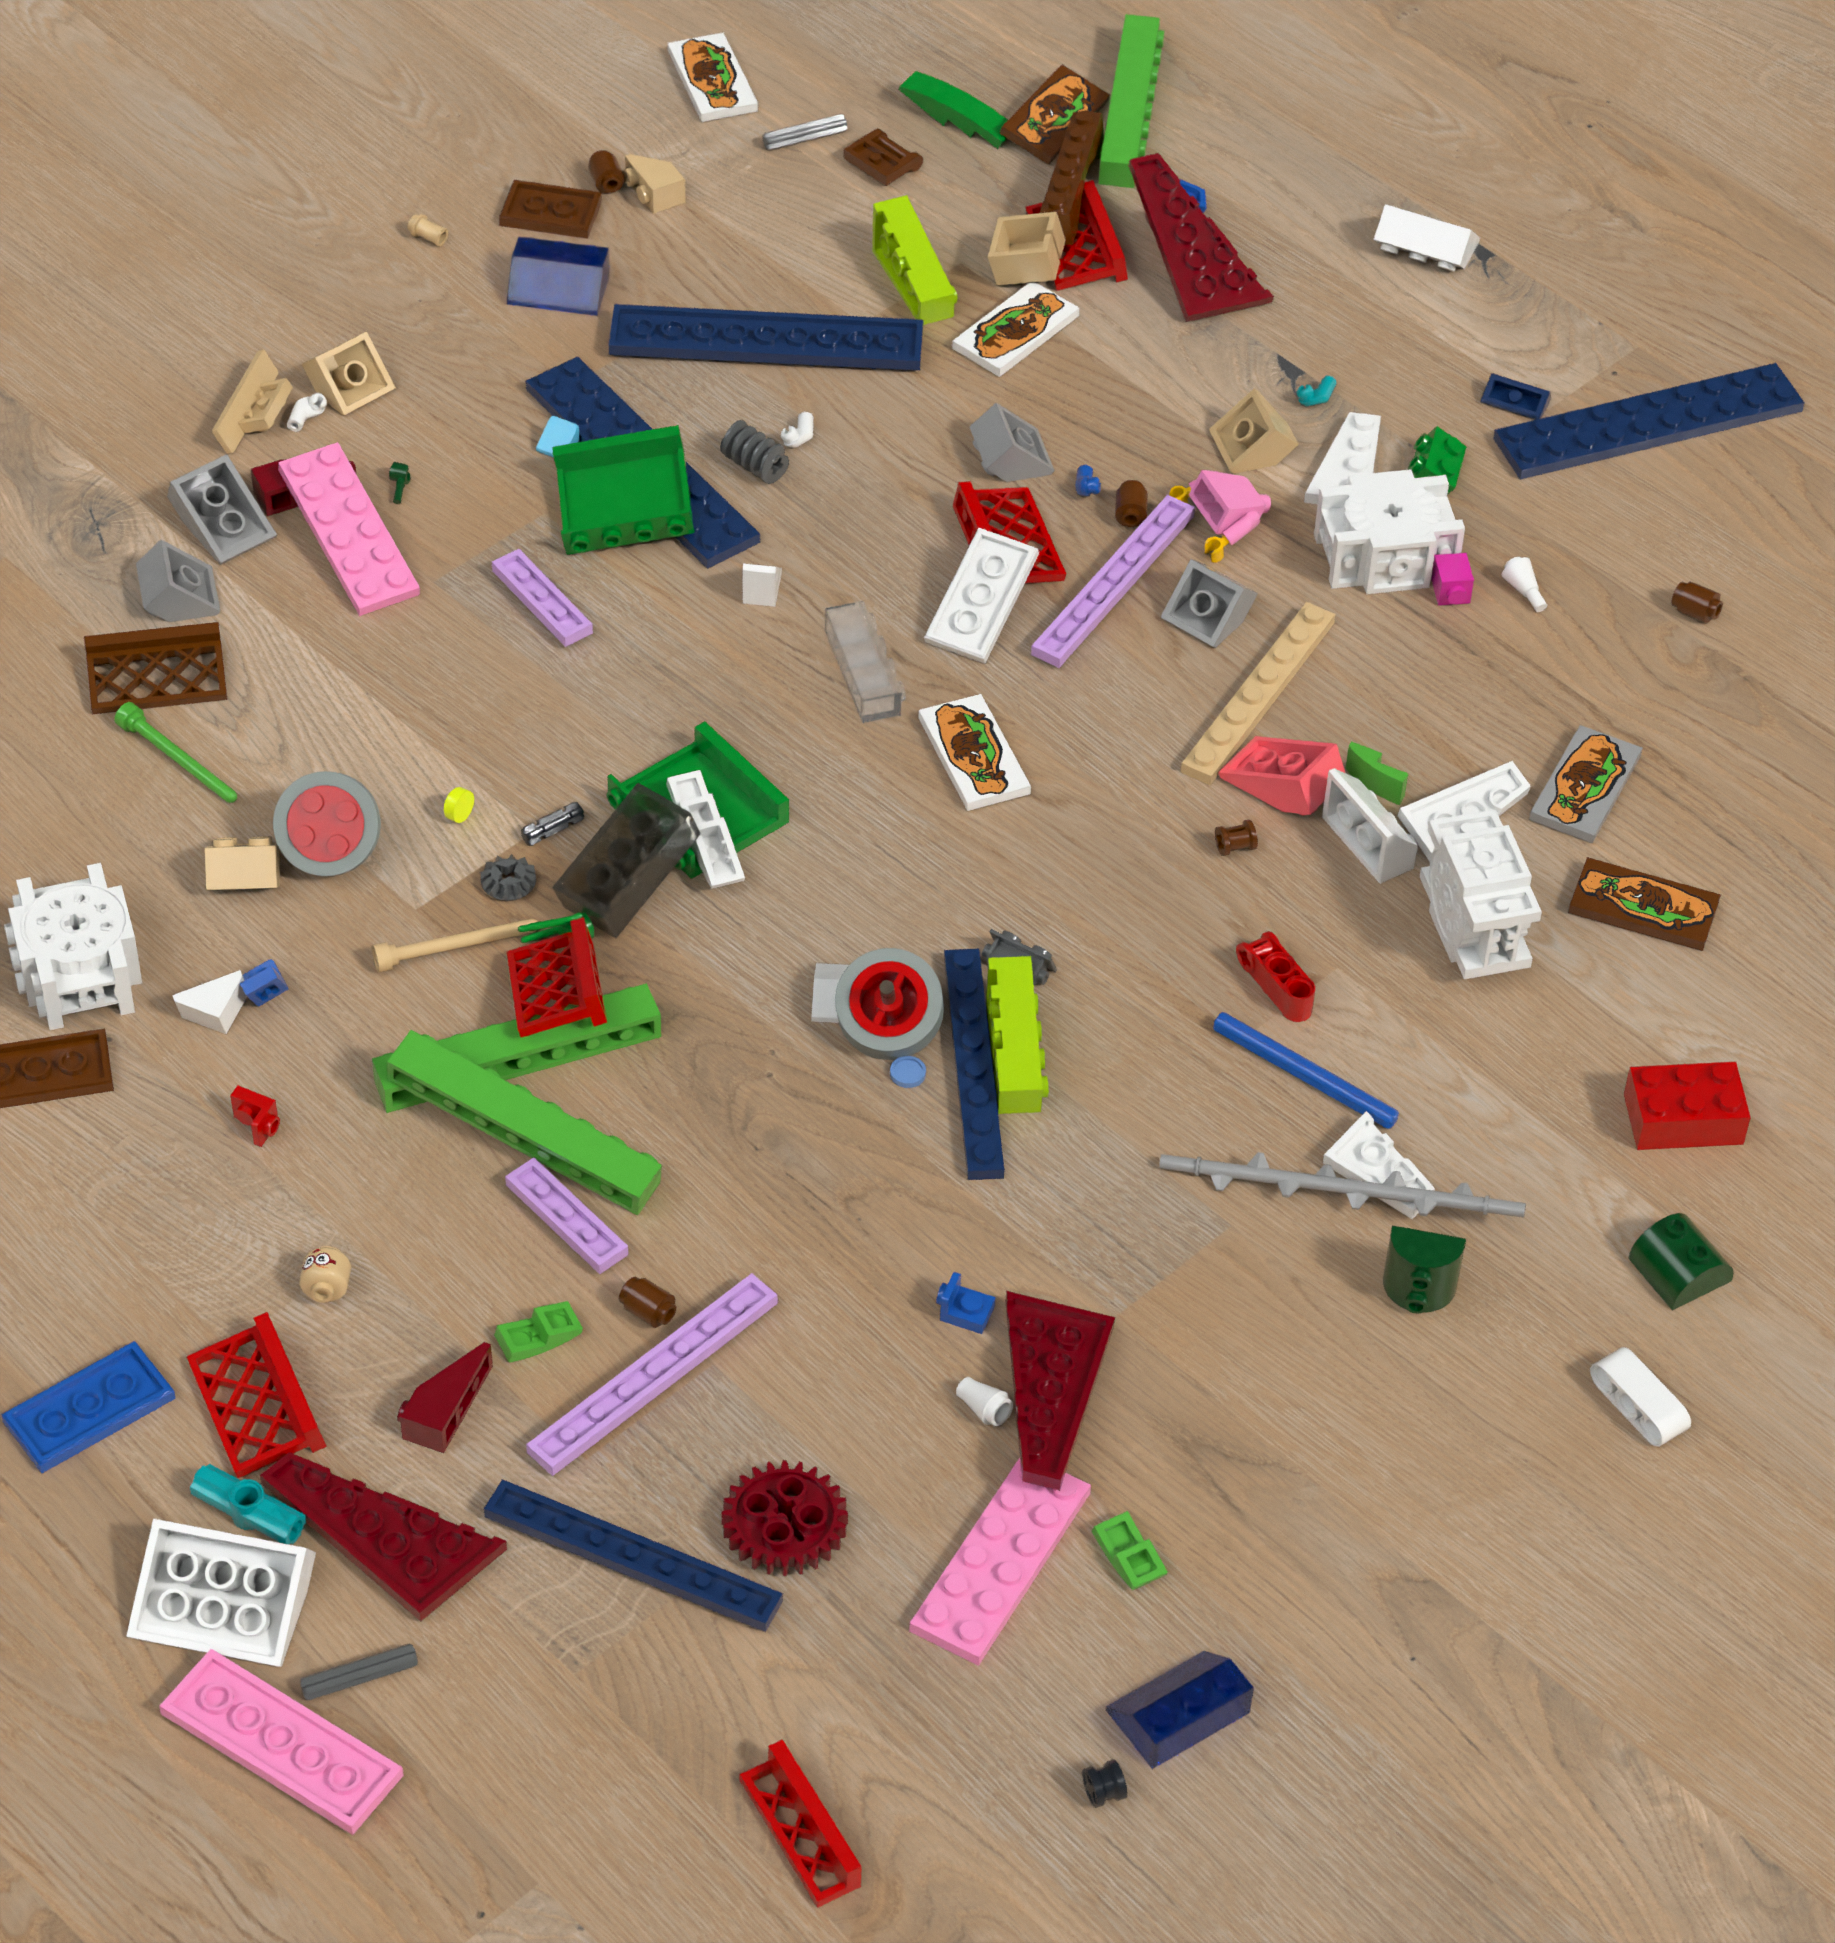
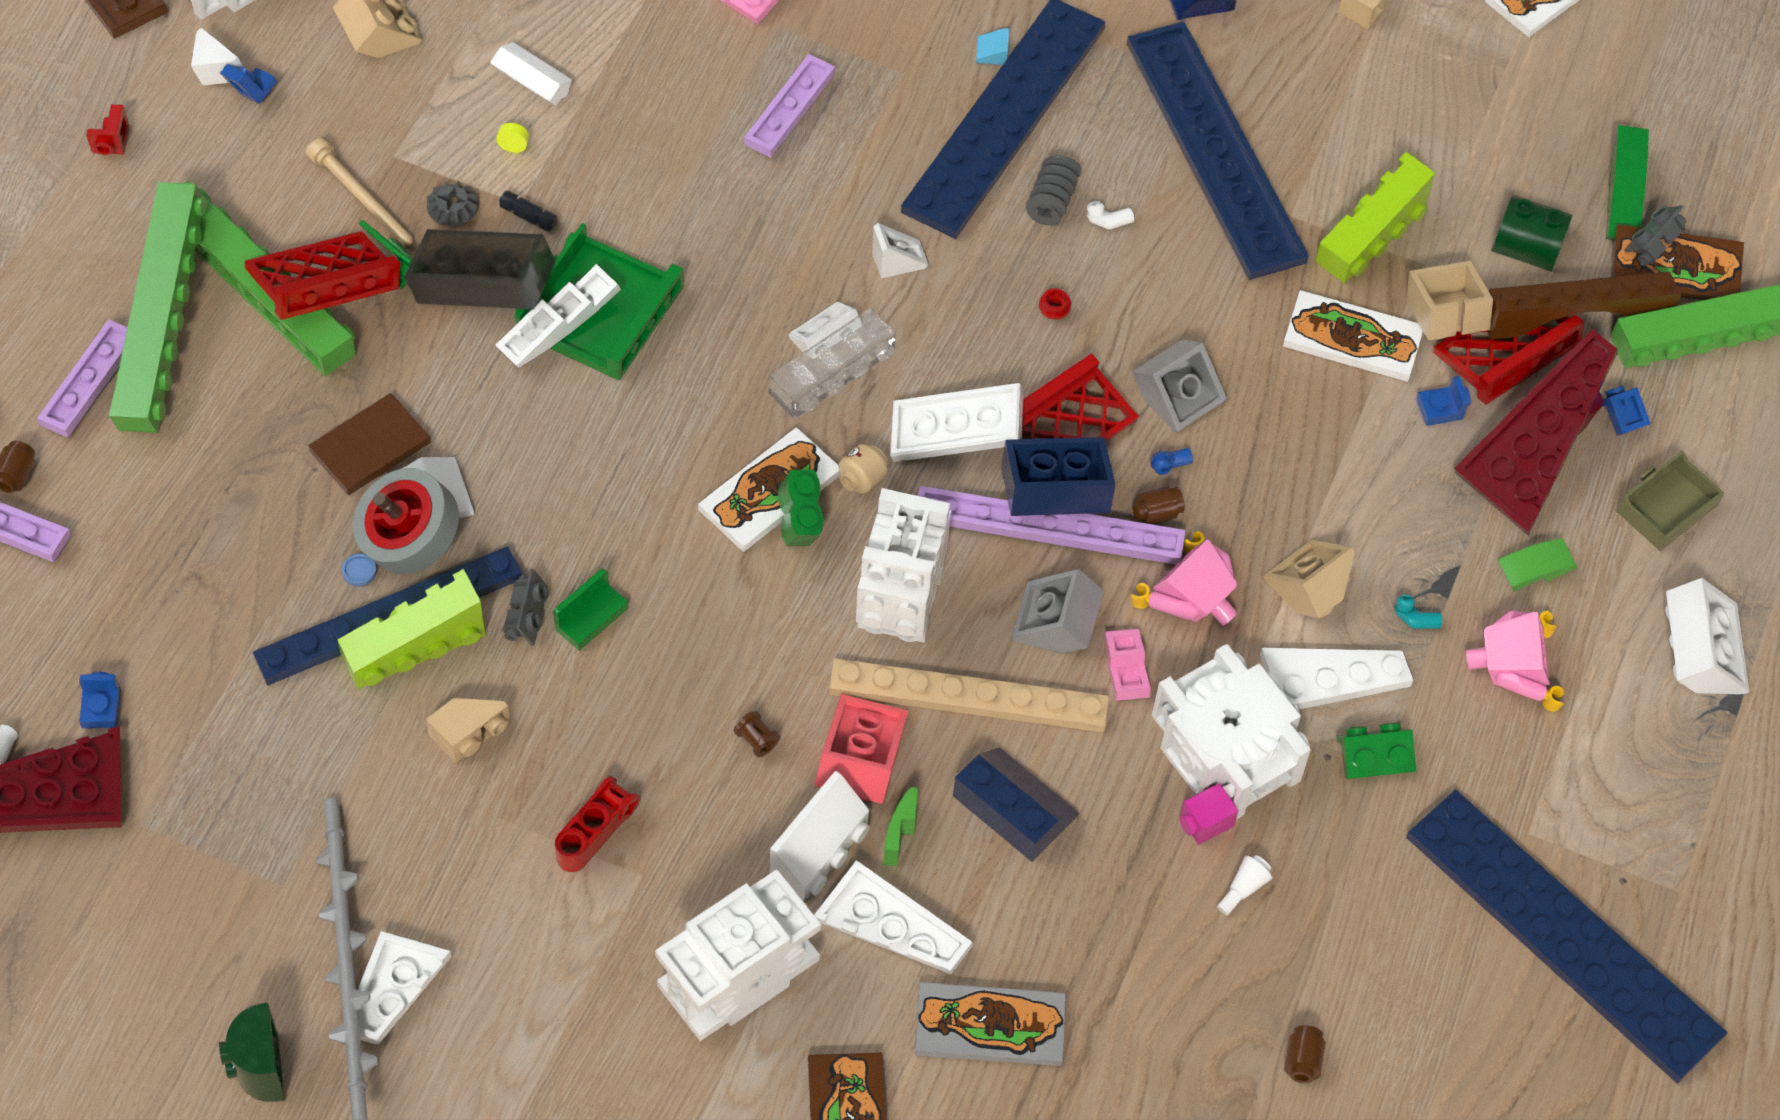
camera: 65 degrees right, 10 degrees up
(326, 823) = (425, 51): wheel -> none
(389, 765) = (532, 72): none -> white piece
(623, 490) = (942, 113): green panel -> none
(766, 1021) = (369, 444): none -> reddish brown tile
(805, 132) = (1518, 81): axle -> none
(815, 659) = (822, 325): none -> white slope
(877, 497) = (1055, 297): none -> red plate
(881, 157) = (1512, 147): reddish brown plate -> none
(973, 181) = (1532, 232): none -> dark green brick
(993, 676) = (863, 468): none -> tan head
(1020, 726) = (802, 514): none -> green brick
(1028, 105) = (1665, 224): none -> dark grey hinge
(1046, 914) = (588, 610): none -> green panel
(1082, 544) = (1057, 476): none -> dark blue brick
(1117, 297) = (1445, 403): none -> blue bracket
(1131, 1037) = (466, 724): none -> tan slope
(1140, 660) = (903, 565): none -> white piece
(1270, 581) = (1127, 664): none -> bright pink slope
(1284, 209) = (1669, 501): none -> olive container
(1304, 306) = (1537, 562): none -> bright green slope
(1305, 1070) = (490, 887): blue axle -> none
(1385, 697) = (1013, 802): none -> dark blue slope
(1392, 343) = (1518, 656): none -> bright pink torso
(1516, 397) = (1522, 797): dark blue slope -> none

